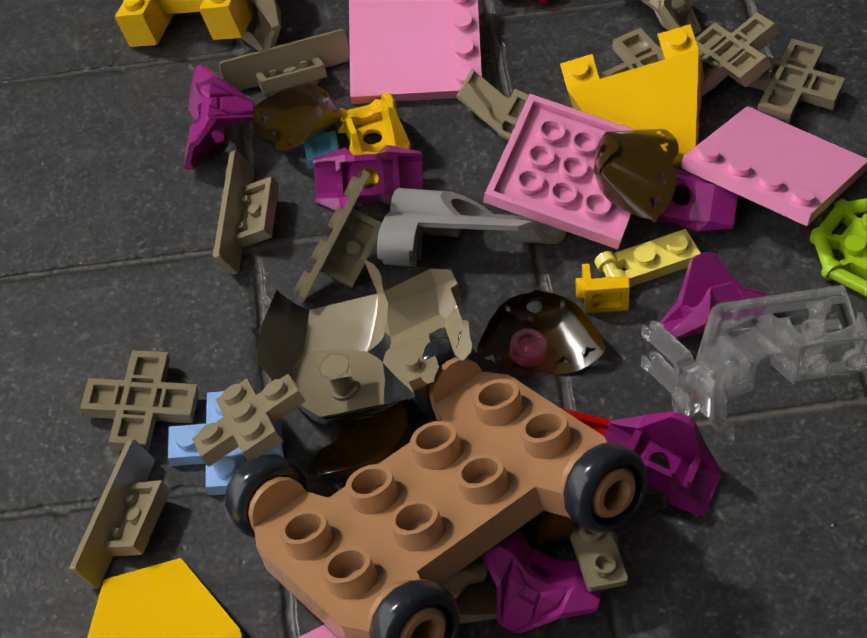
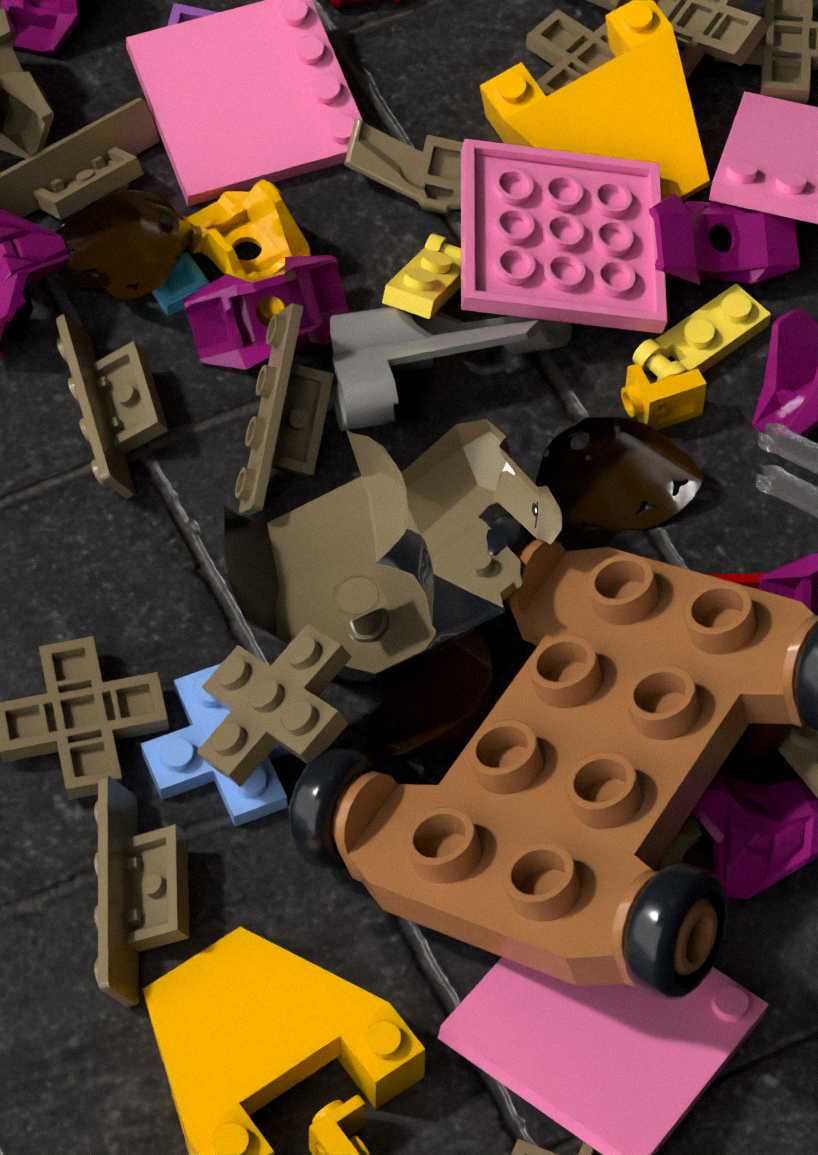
camera: 25 degrees left, 5 degrees up
(469, 181) = (427, 279): none -> light yellow plate
(528, 347) = (595, 501): clear pink tile -> none
(630, 170) = (656, 217): dark brown piece -> none

